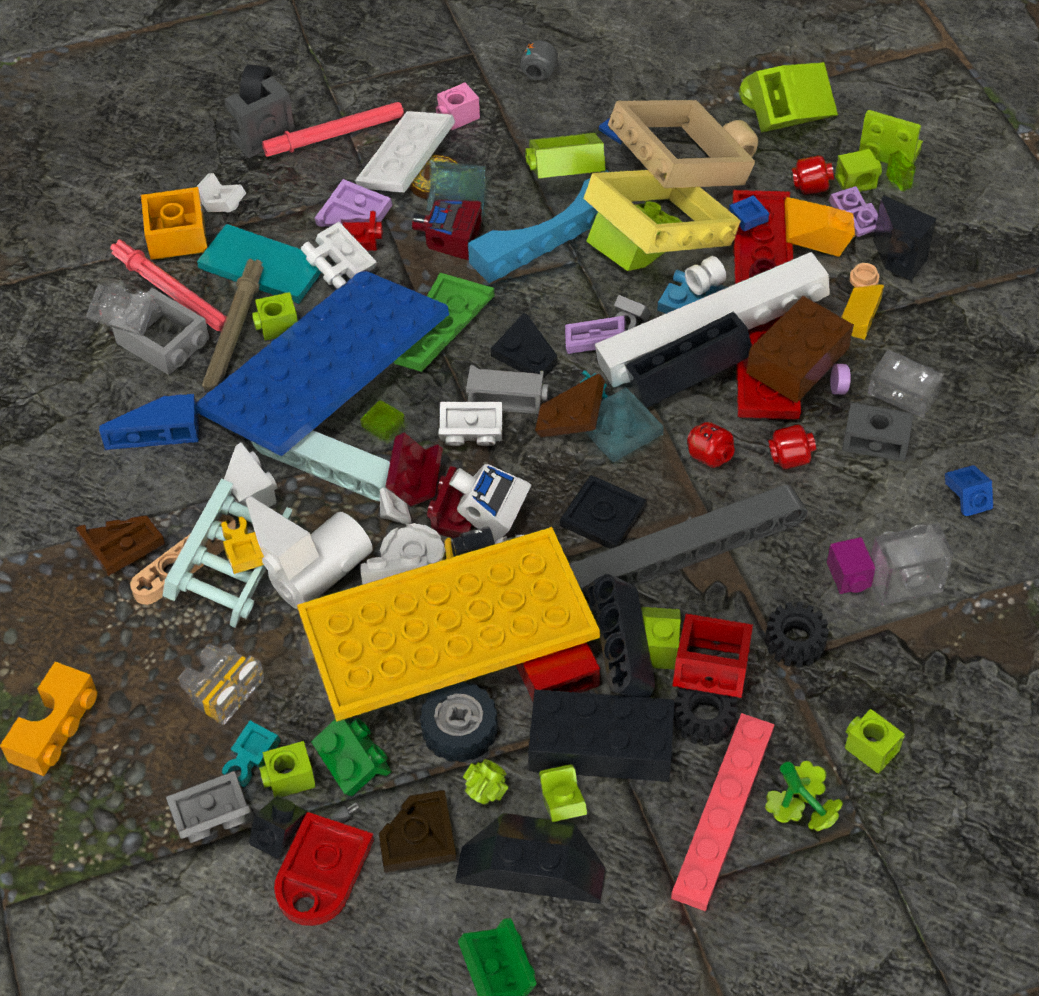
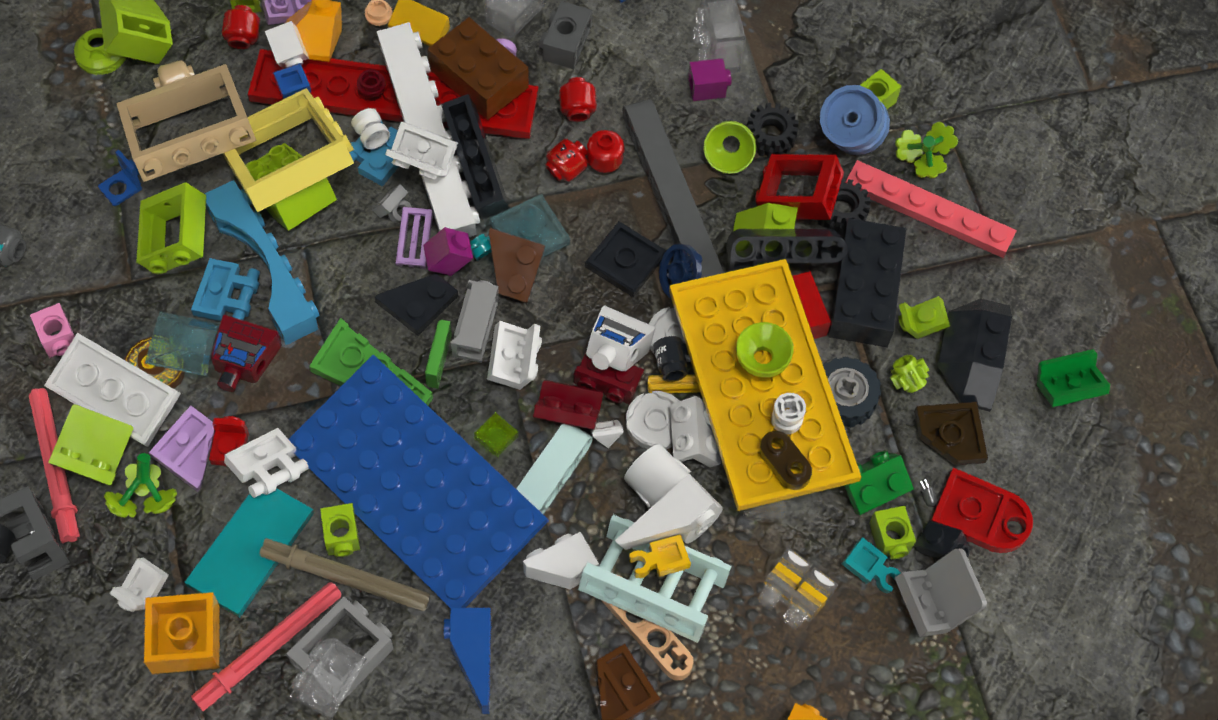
camera: 90 degrees left, 10 degrees up
(317, 183) = (141, 480): none -> lime plant
(340, 141) = (91, 444): none -> lime bracket
(350, 638) = (785, 458): none -> dark brown plate
(397, 631) = (786, 420): none -> white wheel
(457, 363) = (438, 354): none -> bright green tile
(465, 592) = (768, 338): none -> lime piece
(513, 202) = (217, 287): none -> dark azure plate
(577, 355) = (448, 251): none -> magenta brick
(589, 549) = (680, 268): none -> dark blue wheel
(672, 304) = (423, 150): none -> white bracket
(727, 474) = (605, 151): none -> red head
(754, 583) = (725, 160): none -> lime piece
(785, 198) = (287, 45): none -> white brick
(816, 704) = (840, 111): none -> medium blue wheel

